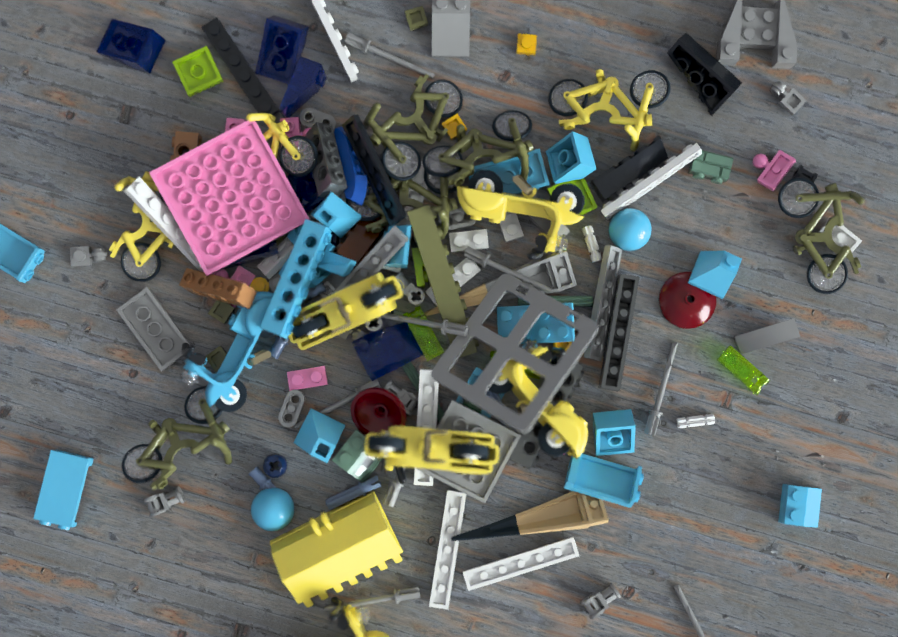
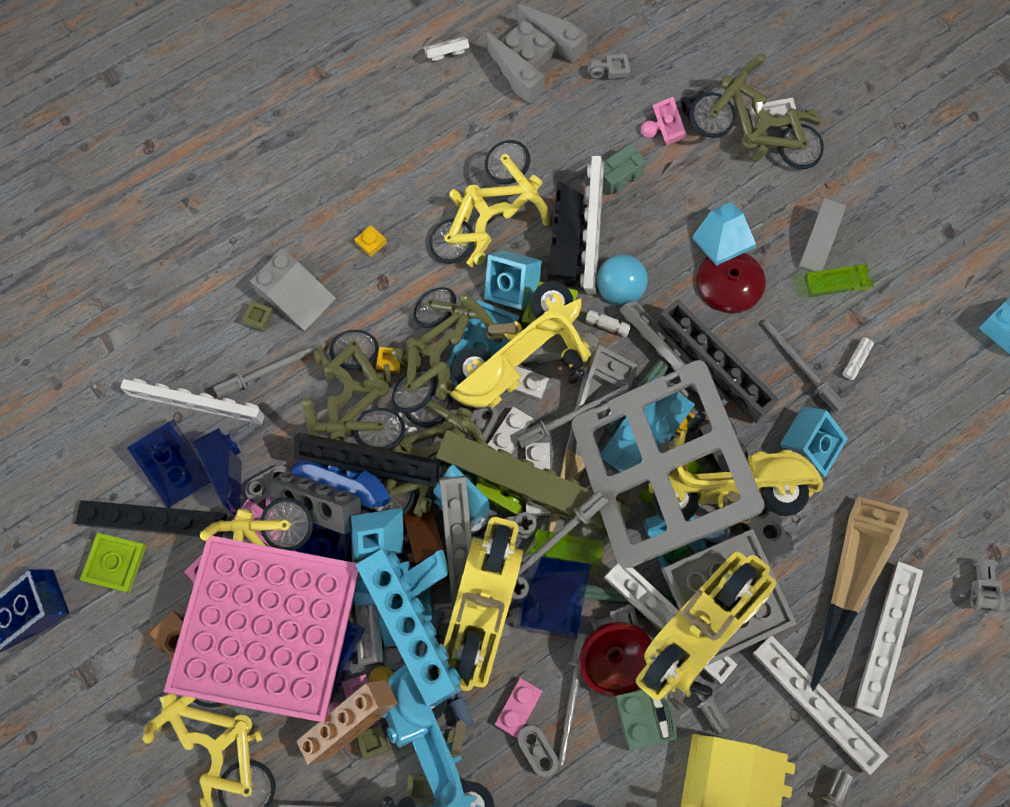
camera: 45 degrees left, 15 degrees down
(160, 216) = (224, 720): white plate -> none
(319, 435) = (591, 743): medium azure slope -> none
(353, 492) = (681, 758): sand blue axle -> none
(604, 480) = (859, 485): medium azure panel -> none
(703, 72) = (532, 114): black wedge -> none

